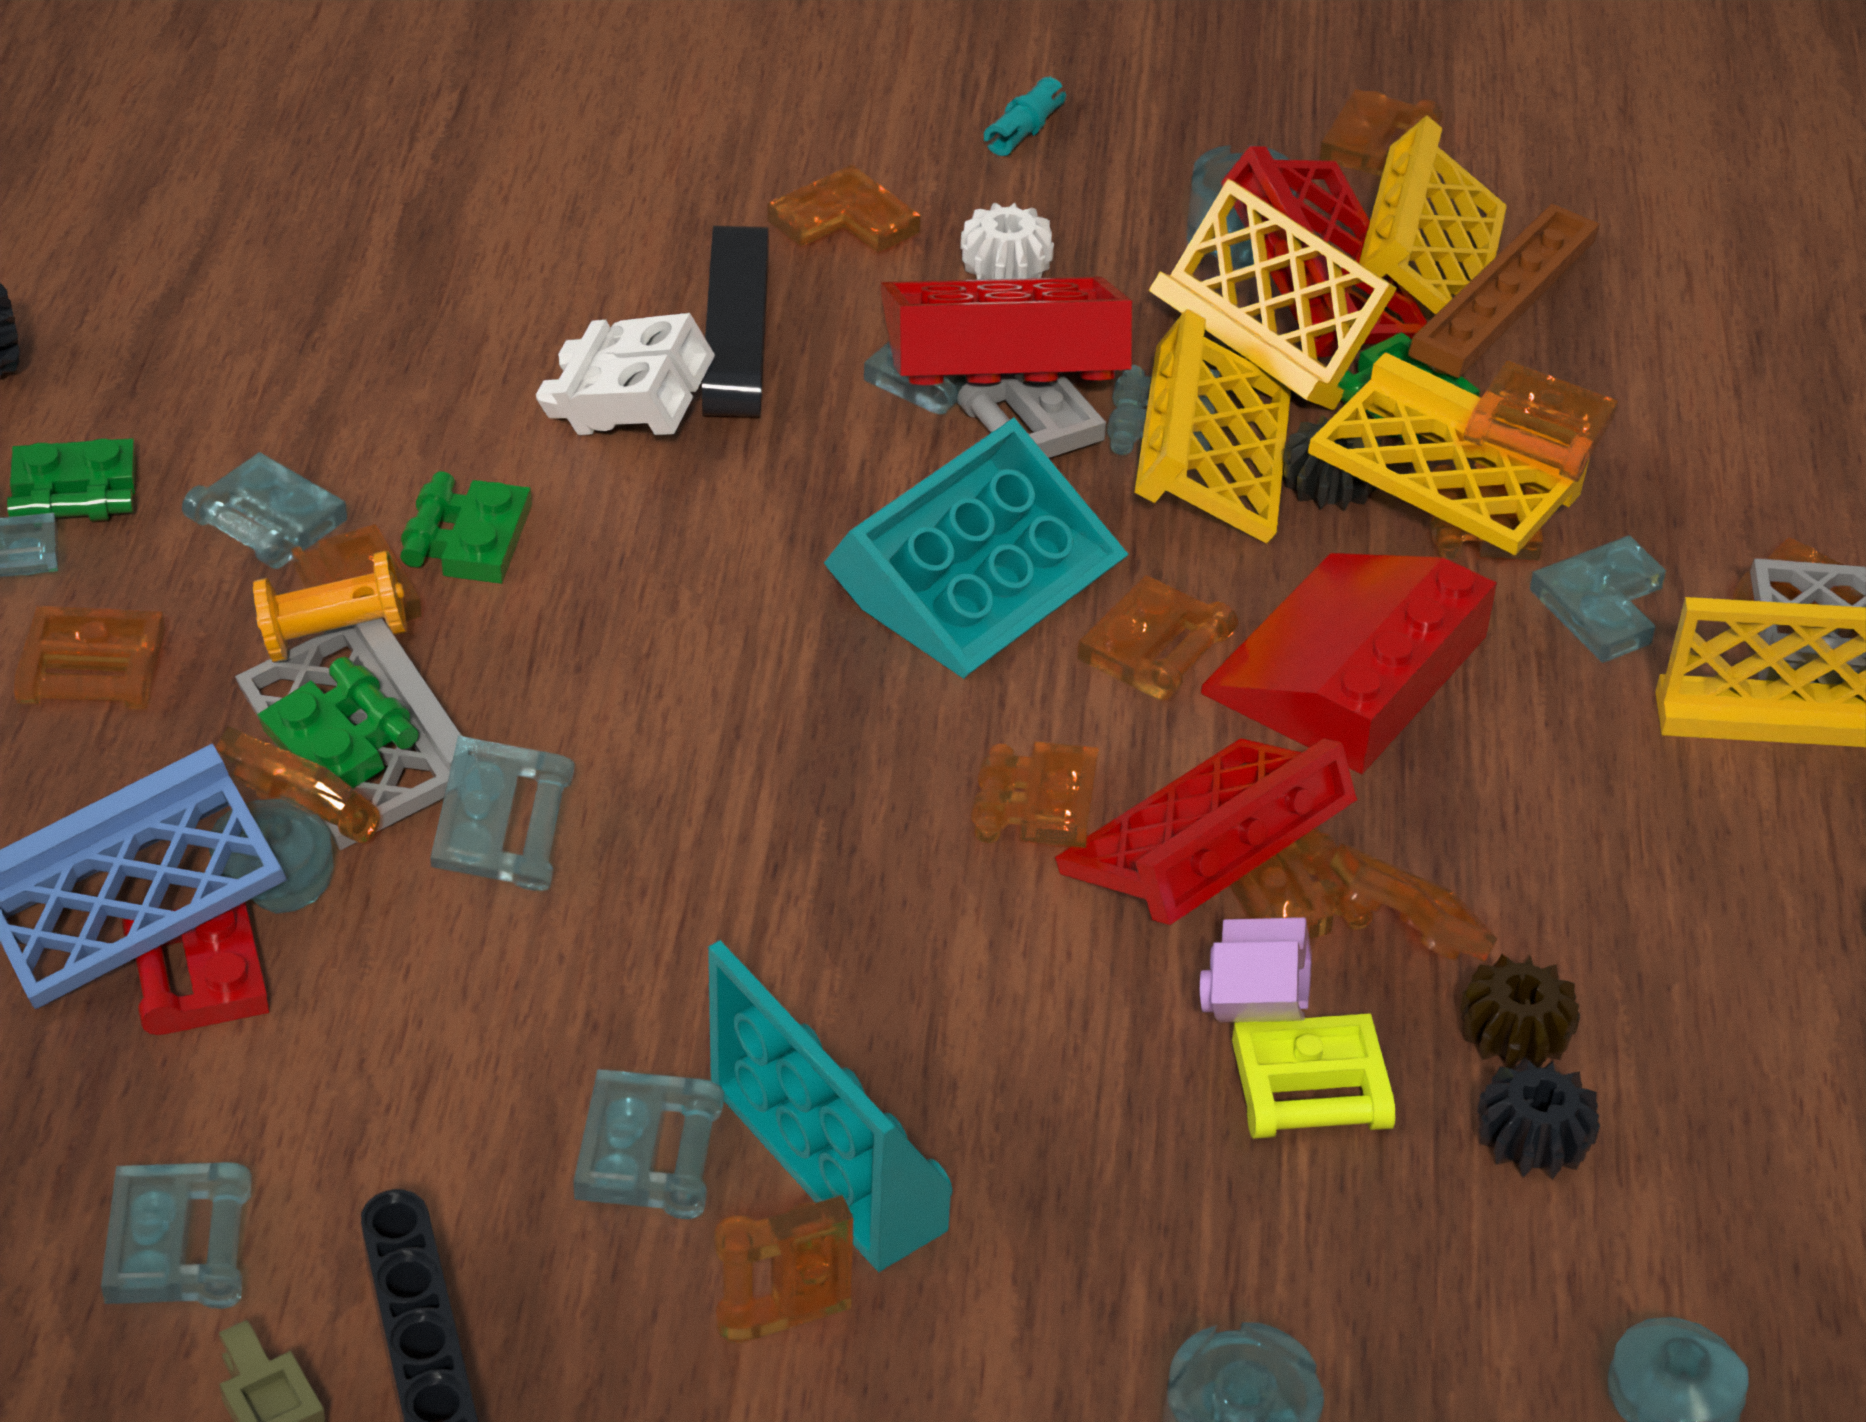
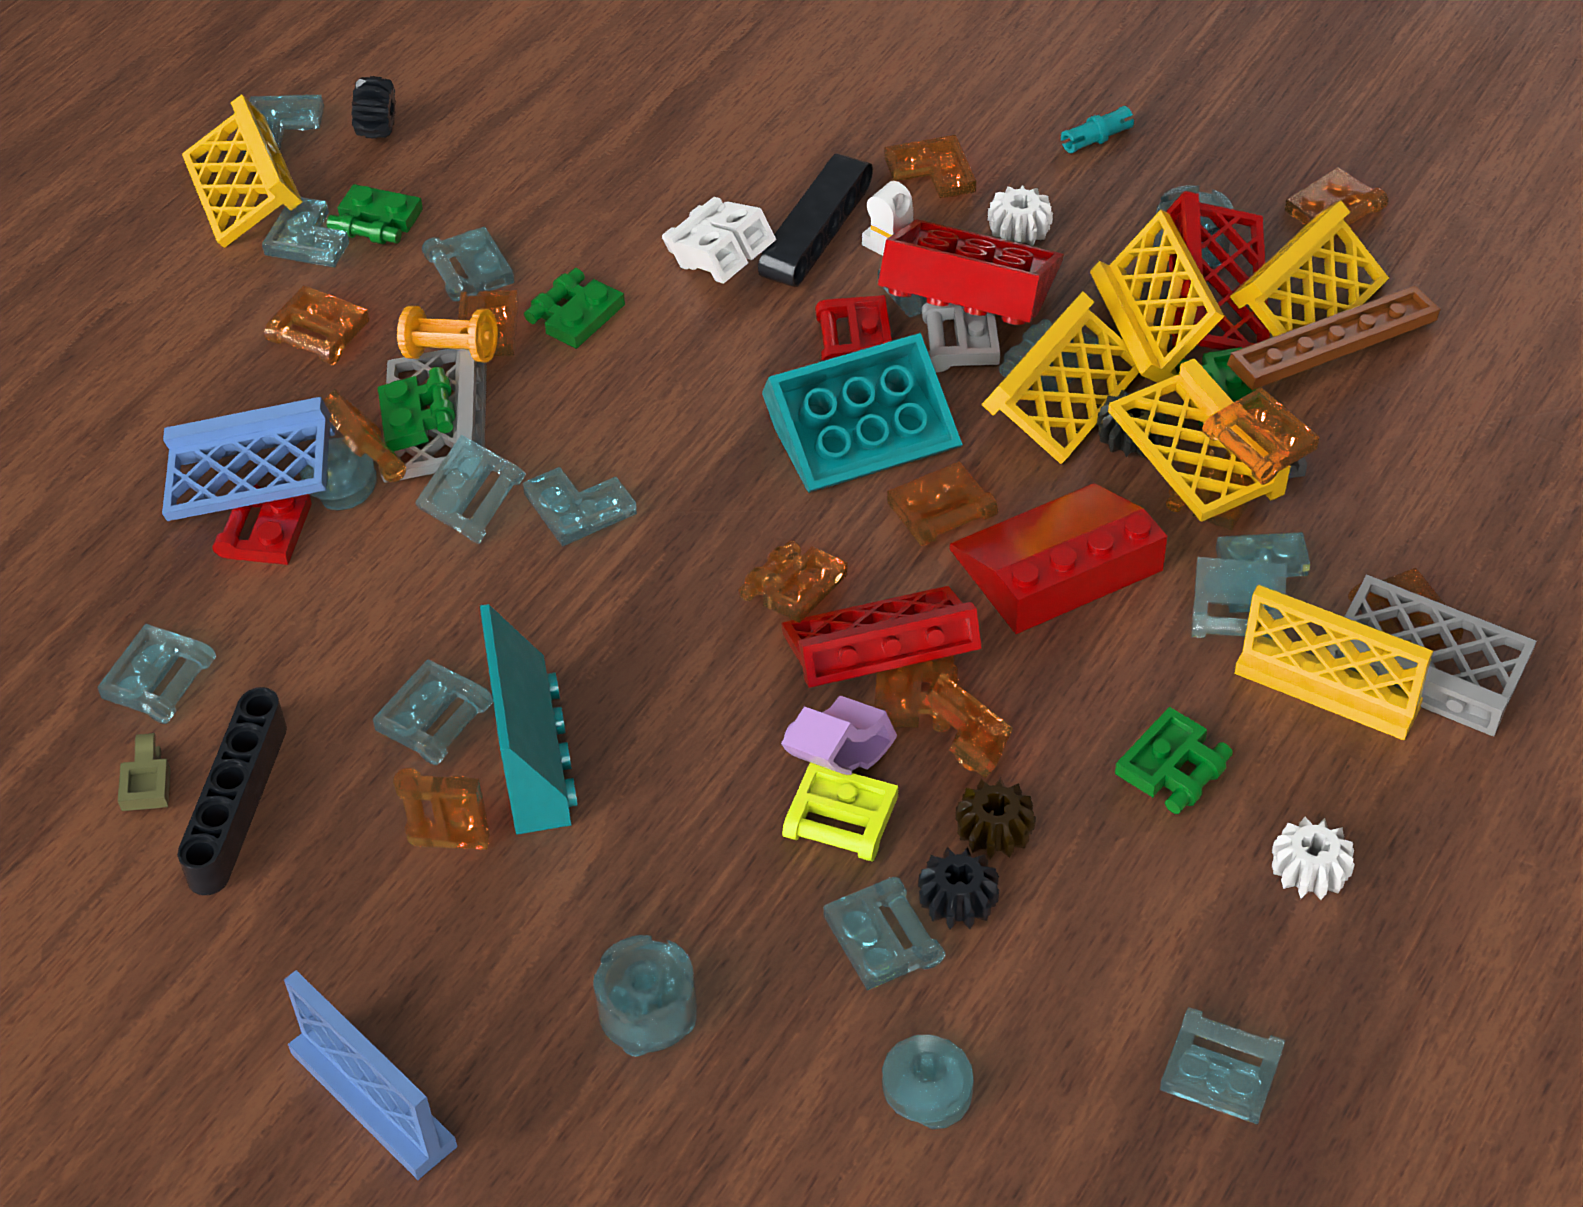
camera: 30 degrees right, 5 degrees up
(664, 803) = (575, 513): none -> clear light blue plate
(850, 301) = (889, 212): none -> white leg
(898, 435) = (866, 322): none -> red plate
(1469, 1226) = (870, 939): none -> clear light blue plate
(1614, 618) = (1231, 584): none -> clear light blue plate
(1658, 861) = (1161, 753): none -> green plate

